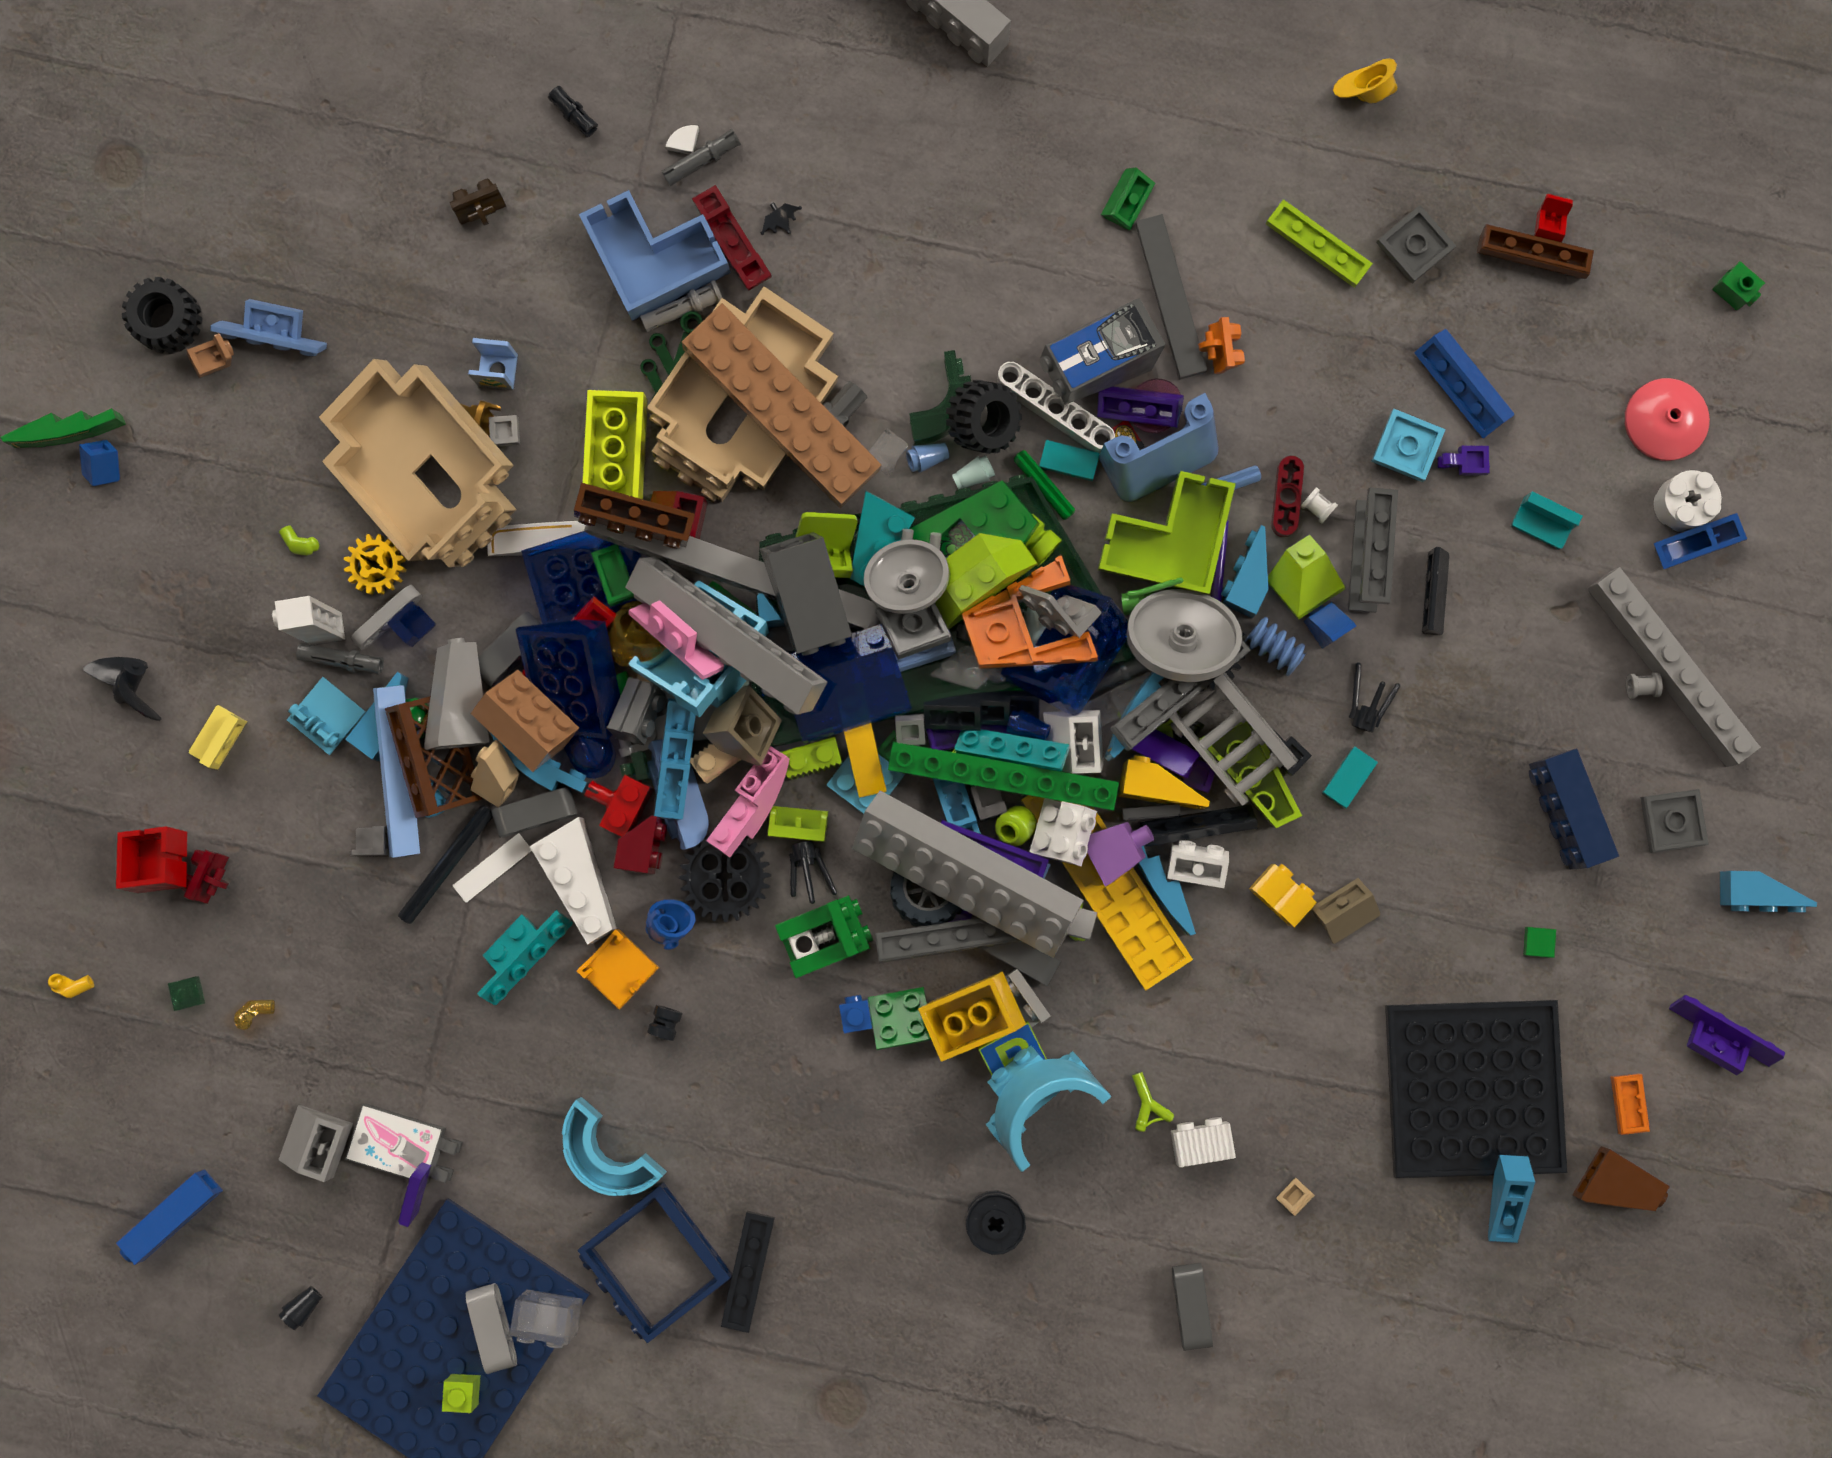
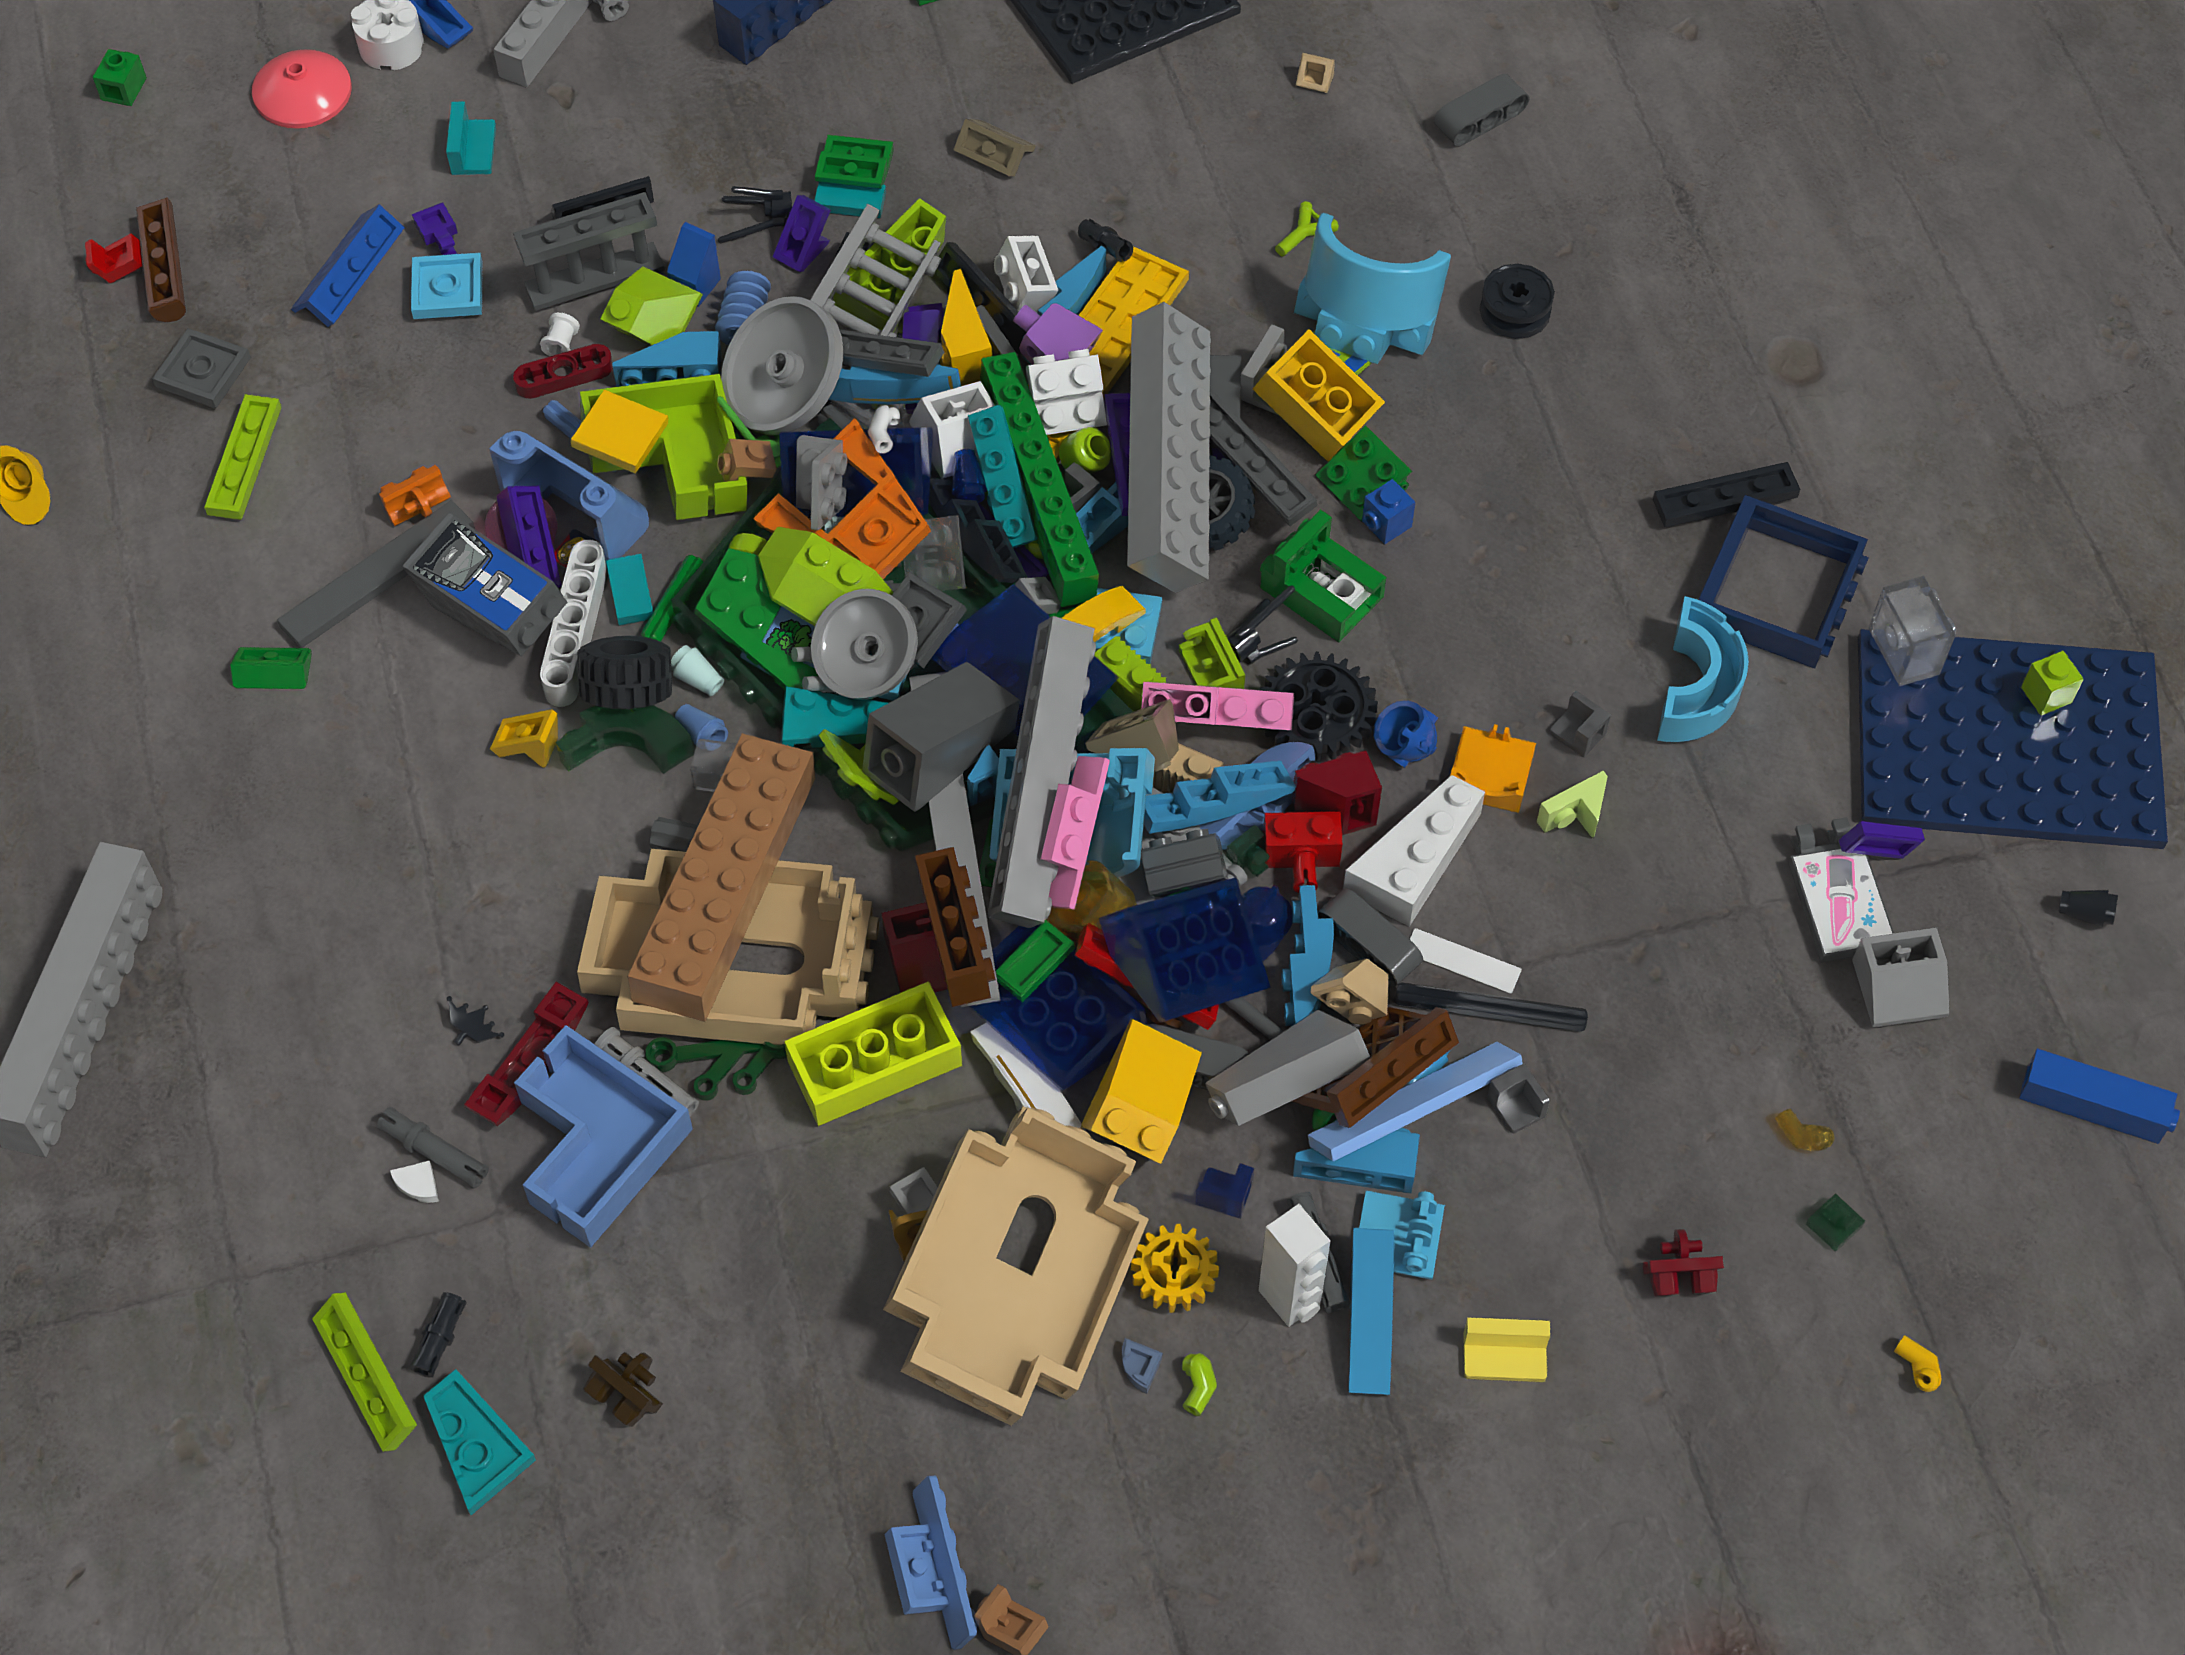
camera: 120 degrees left, 25 degrees down
(125, 677) = (1497, 1504): black piece -> none
(151, 860) = (1706, 1325): red piece -> none
(282, 668) = (1371, 1311): none -> dark azure slope
(331, 515) = (1140, 1364): none -> sand blue tile
(377, 624) = (1223, 1218): light grey beam -> none
(487, 597) = (1143, 1091): none -> yellow slope
(491, 1328) = (1964, 690): light grey beam -> none
(492, 106) = (476, 1441): none -> teal wing
(493, 352) = (850, 1241): light blue piece -> none
(519, 951) = (1539, 881): teal bracket -> none
(524, 720) = (1268, 972): medium nougat brick -> none
(558, 1015) = (1578, 802): none -> yellowish green slope
(560, 59) = (364, 1372): none -> lime plate
(617, 1048) = (1581, 724): none -> flat silver panel
(666, 1016) = (1519, 690): black wheel -> none
(976, 336) = (528, 734): none -> yellow slope
(1080, 669) = (877, 430): none -> white arm
(1120, 577) = (746, 459): none -> medium nougat bracket
(1182, 494) = (619, 431): none -> yellow tile
(1203, 1142) = (1314, 164): white brick -> none
(1205, 942) = (1105, 237): none -> black pin
(1283, 895) = (1011, 199): yellow brick -> none
(1324, 721) = (802, 236): none -> dark purple slope
(1379, 795) = (854, 161): none -> green slope

